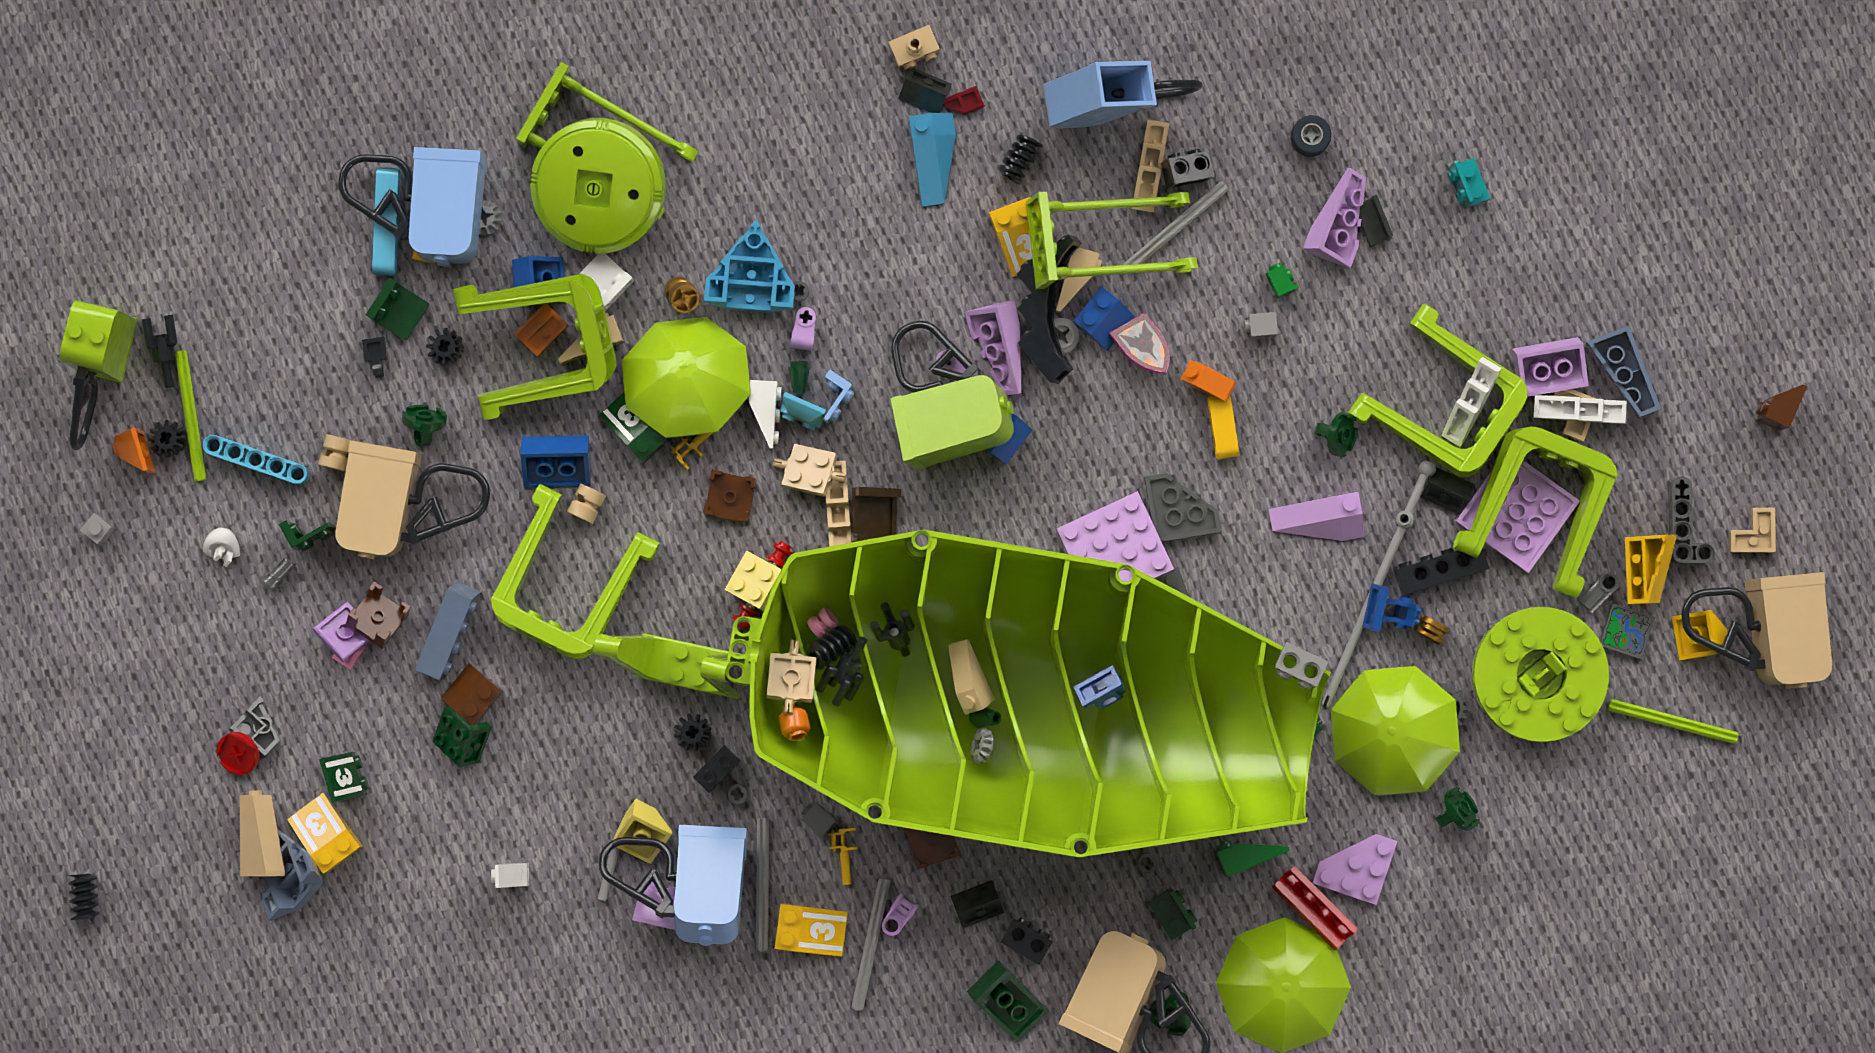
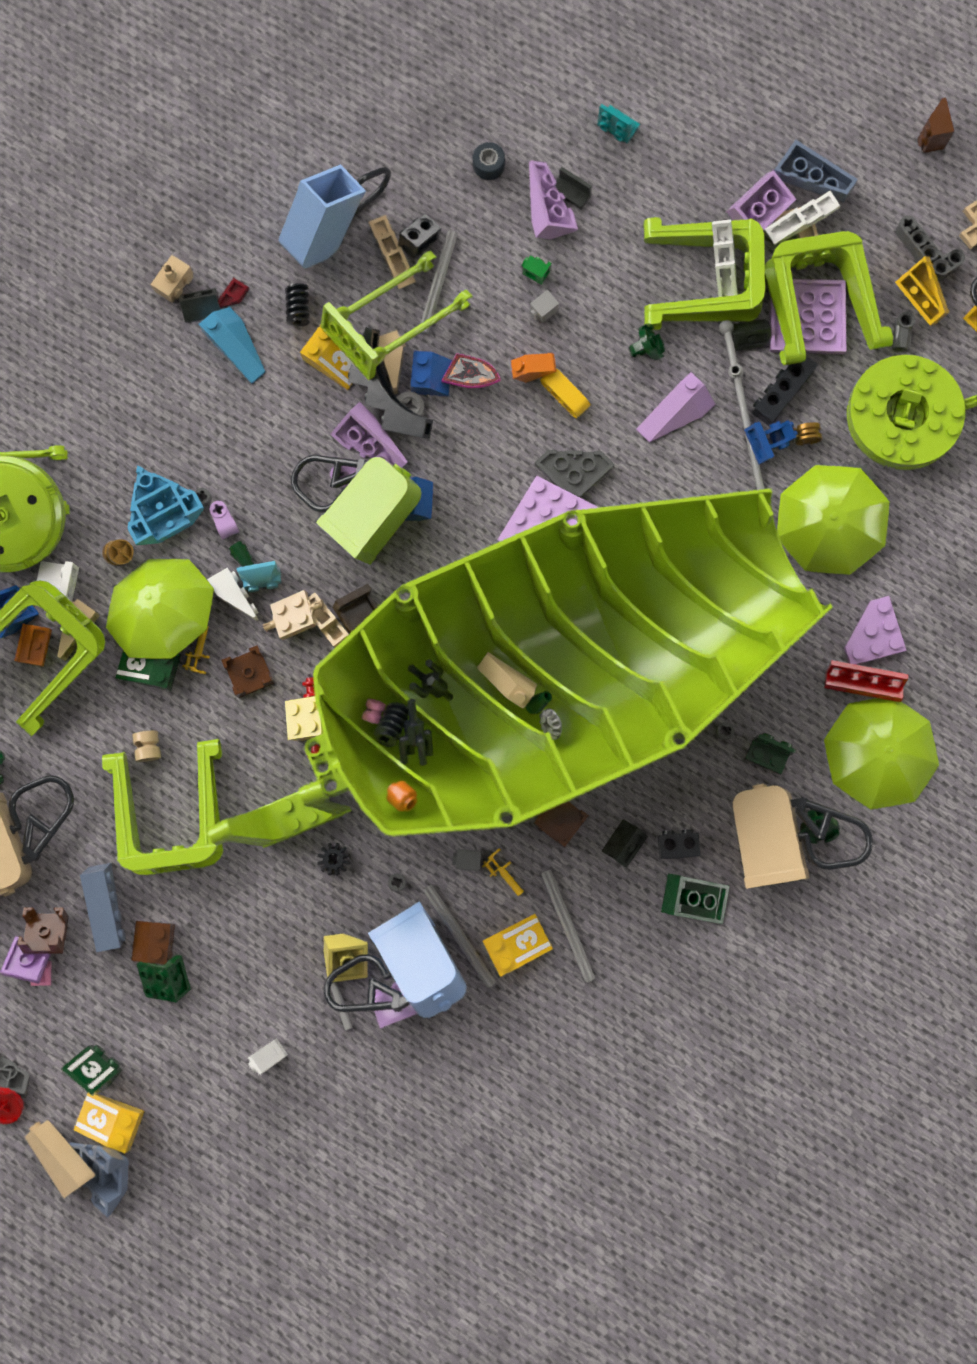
camera: 30 degrees left, 5 degrees down
(556, 461) = (104, 731): blue slope -> none
(716, 768) = (369, 873): black brick -> none
(791, 677) = (376, 764): tan plate -> none
(837, 383) = (277, 541): light blue bracket -> none
(899, 914) = (574, 889): lavender piece -> none
(1101, 688) = (609, 621): tile -> none
(1241, 856) = (788, 680): green slope -> none
(1302, 659) = (744, 491): light grey brick -> none
(1459, 809) = (917, 543): dark green tile -> none
(1626, 631) = (941, 346): tile -> none

